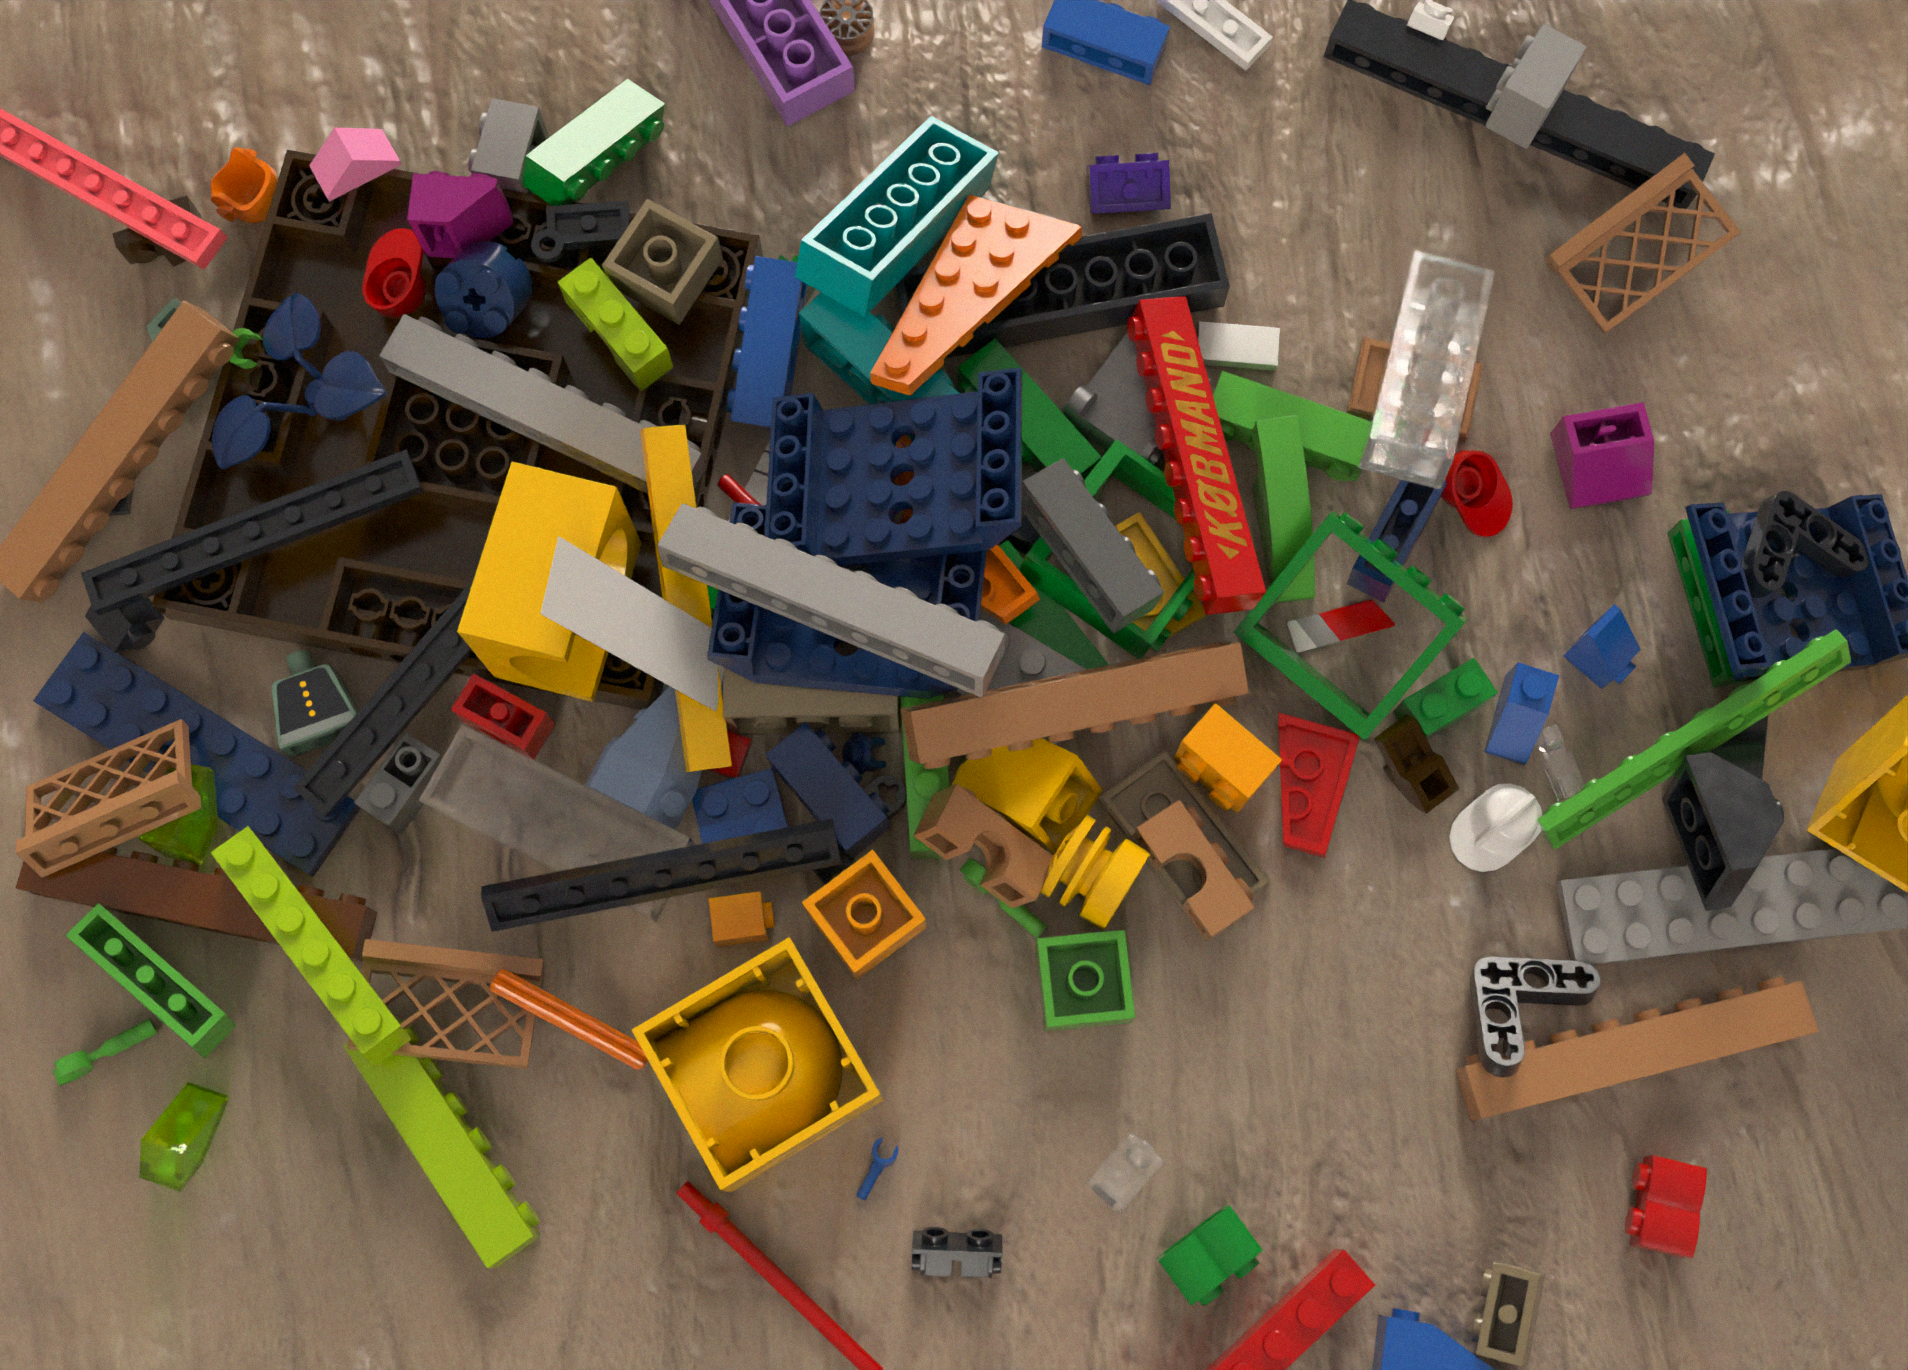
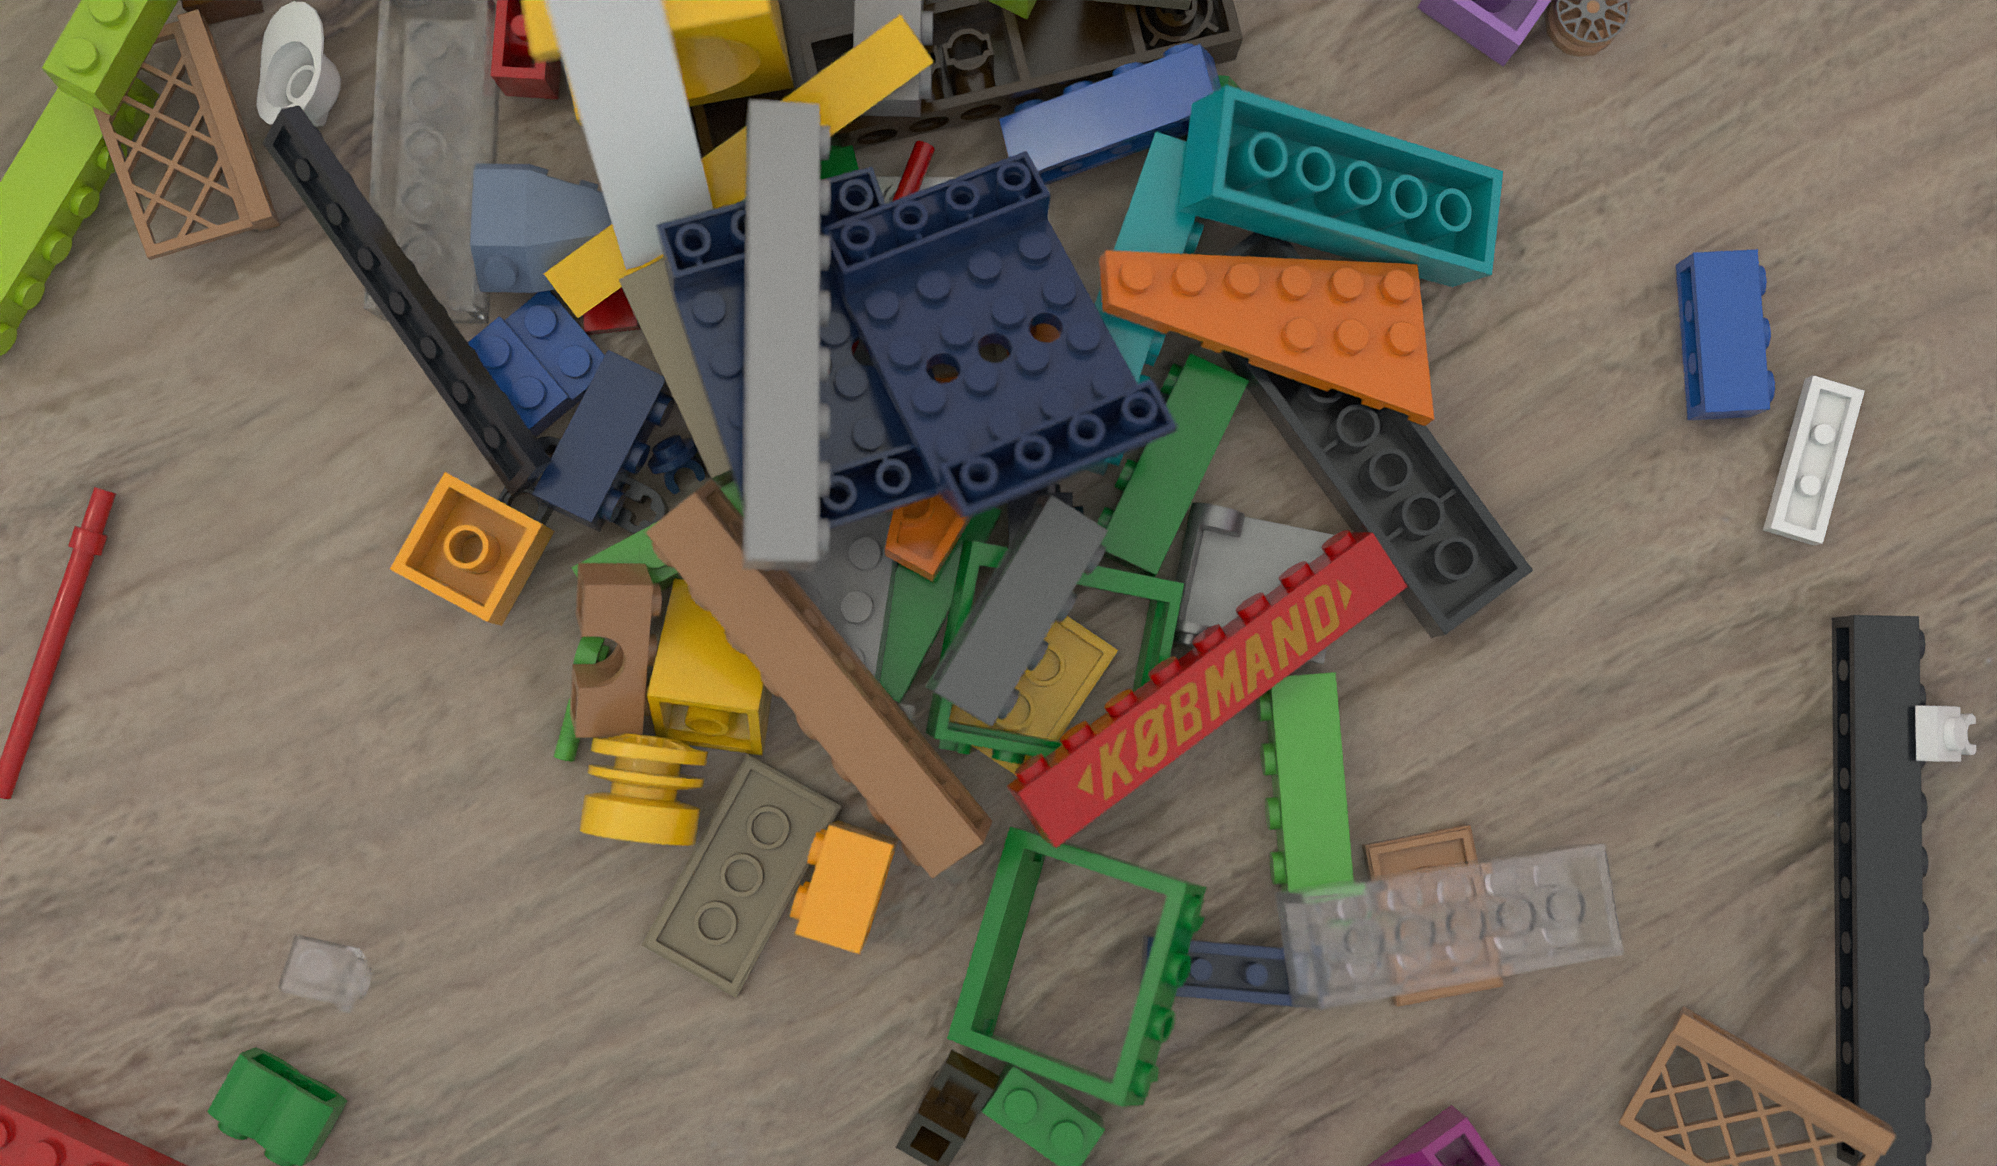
camera: 65 degrees right, 10 degrees up
(437, 896) = (295, 67): none -> white piece
(568, 1018) = (222, 278): orange axle -> none
(740, 918) = (420, 414): light orange brick -> none
(757, 1066) = (248, 513): yellow piece -> none
(875, 1169) = (216, 692): blue hand -> none
(977, 1250) = (159, 803): black hinge -> none
(1084, 980) = (515, 833): bright green brick -> none
(1130, 185) = (1536, 452): dark purple bracket -> none
(1178, 836) = (678, 948): medium nougat arch -> none
(1239, 345) = (1387, 676): white tile -> none
(1283, 502) = (1201, 817): bright green slope -> none
(1312, 780) = (878, 997): red wing -> none
(1338, 625) = (1089, 946): sticker -> none
(1478, 492) = (1328, 1050): red cap -> none
(1533, 84) = (1900, 903): light grey brick -> none

